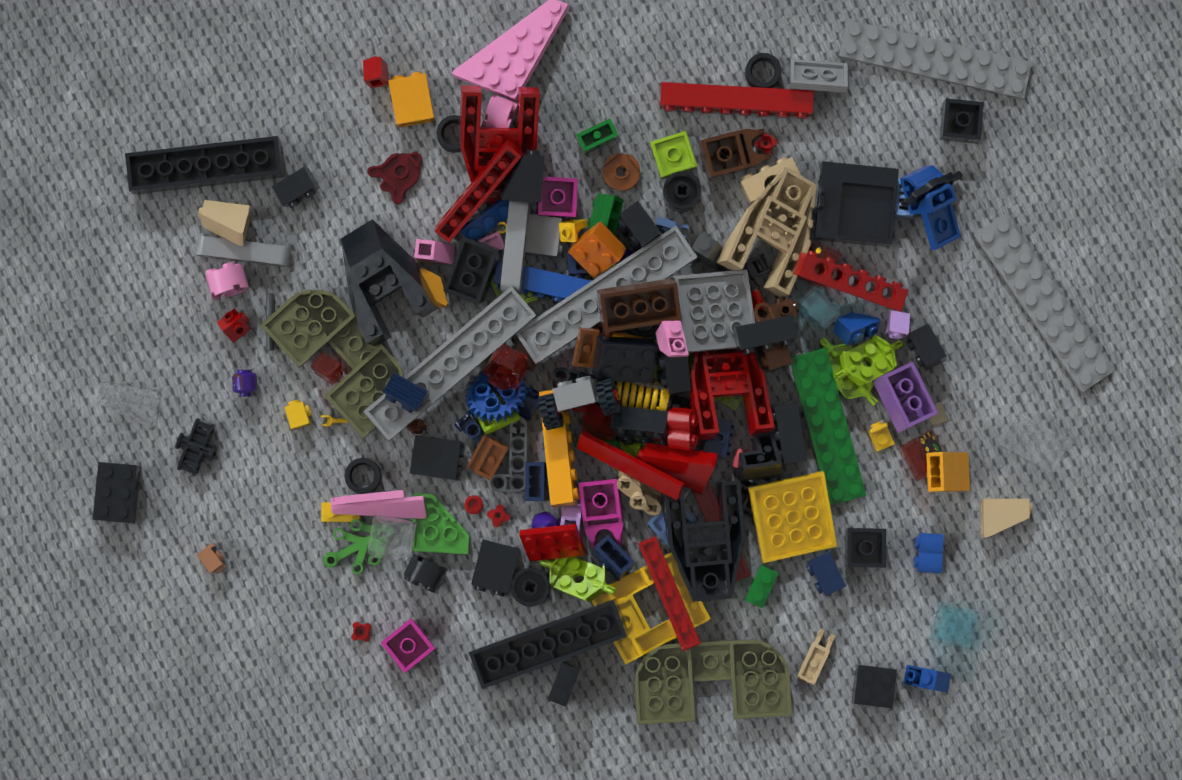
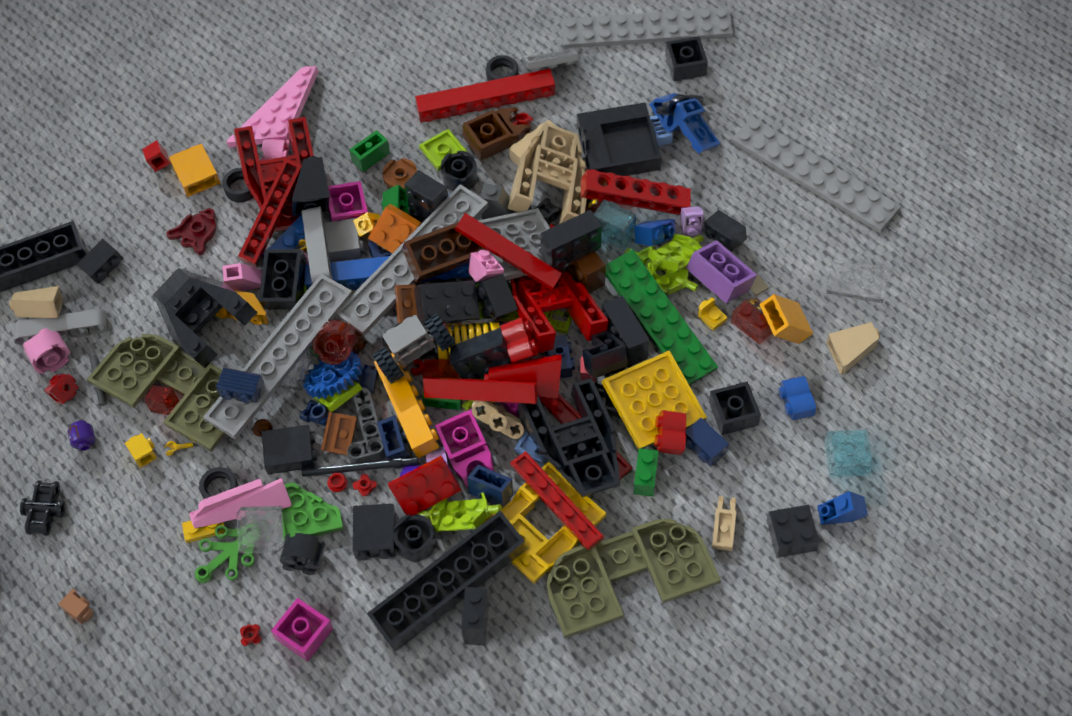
camera: 10 degrees left, 25 degrees down
(534, 507) = (397, 463): none -> black bar
(699, 327) = (508, 251): none -> red tile
(796, 558) = (671, 432): none -> red brick

